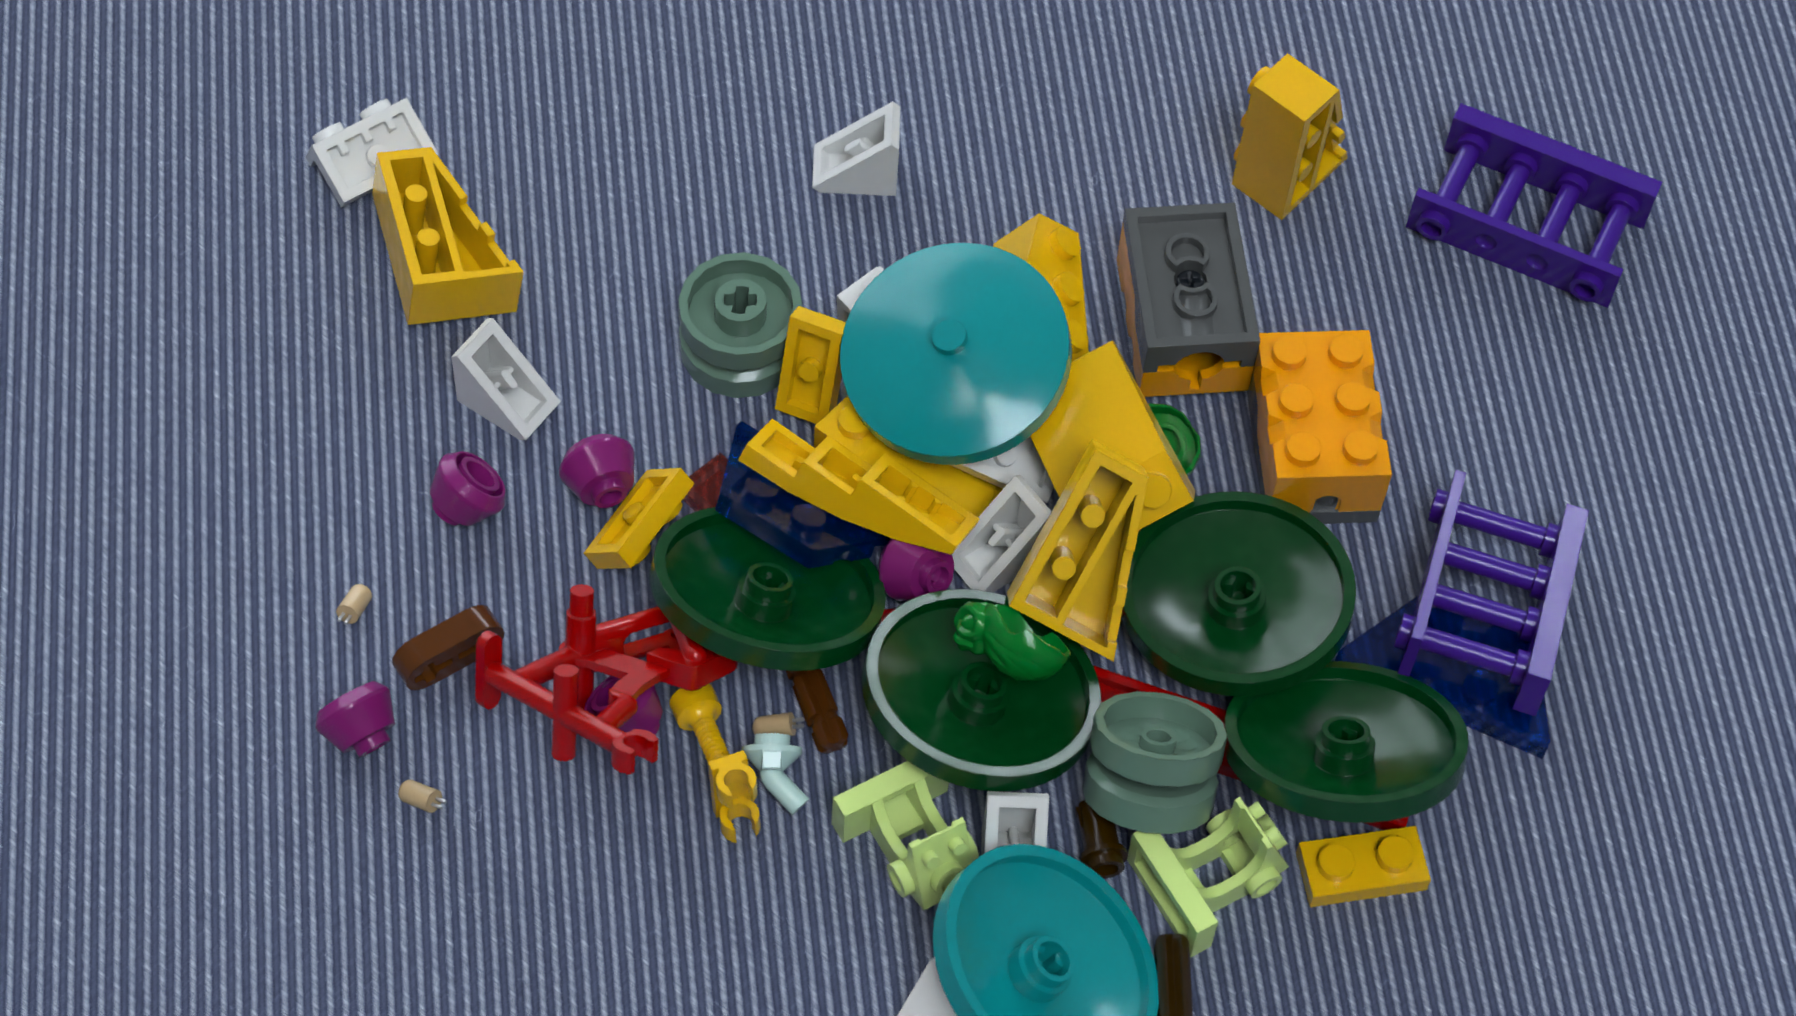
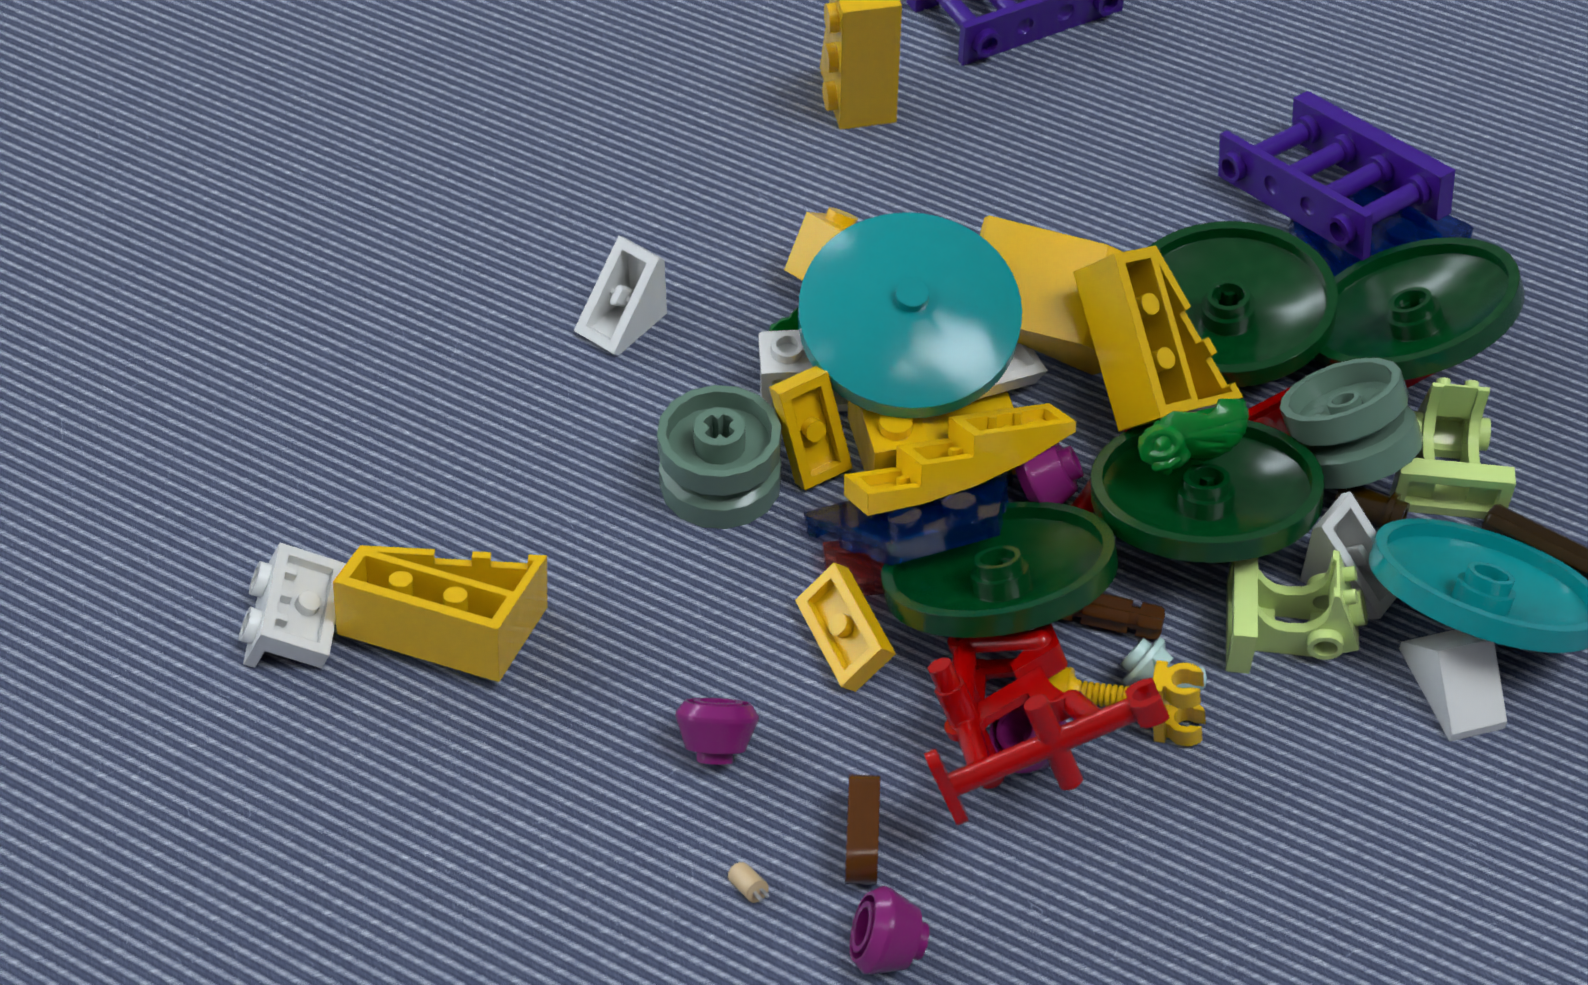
camera: 50 degrees left, 10 degrees down
(421, 796) = (987, 939): tan piece -> none
(500, 382) = (626, 646): white slope -> none
(599, 469) = (777, 626): magenta cone -> none
(777, 723) = (1108, 653): tan piece -> none
(1001, 537) = (1067, 385): white slope -> none
(1187, 299) = (944, 171): dark grey piece -> none
(1319, 424) = (1113, 181): light orange piece -> none
(1363, 866) = (1505, 370): yellow plate -> none

